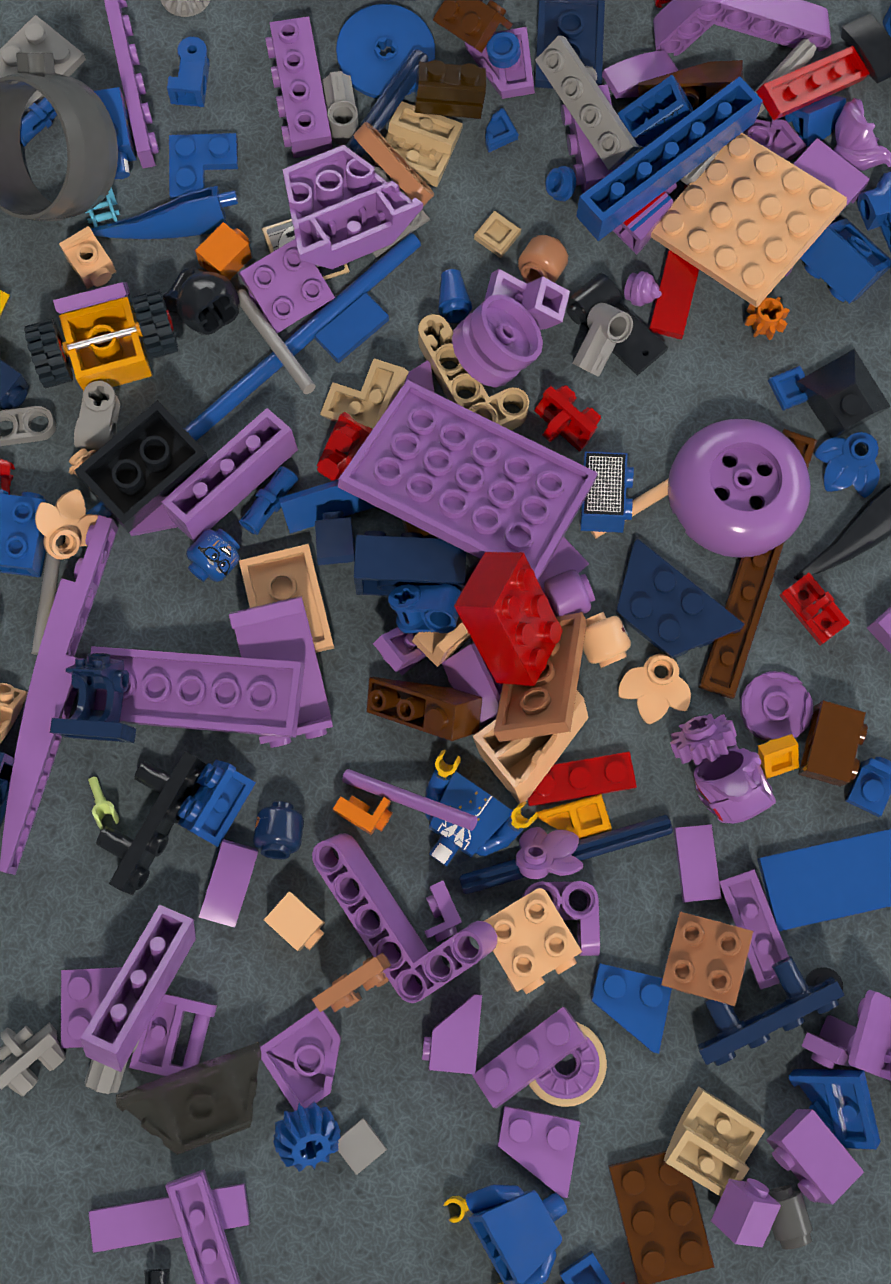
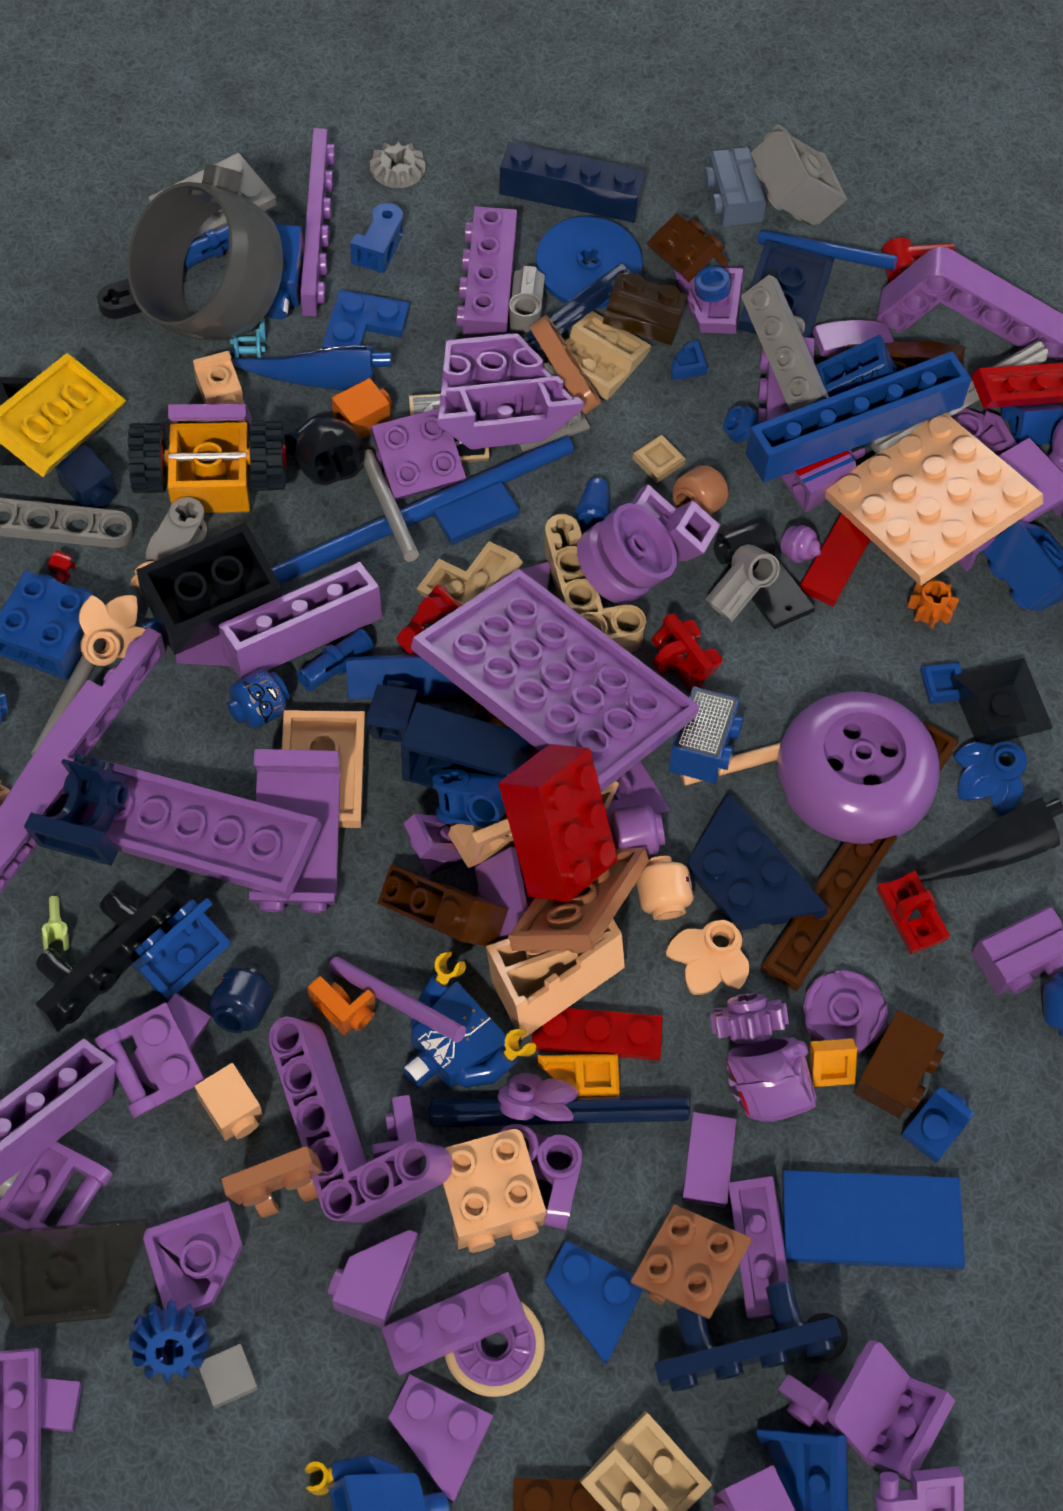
camera: 15 degrees right, 15 degrees down
(229, 896) = (164, 1054): none -> medium lavender plate

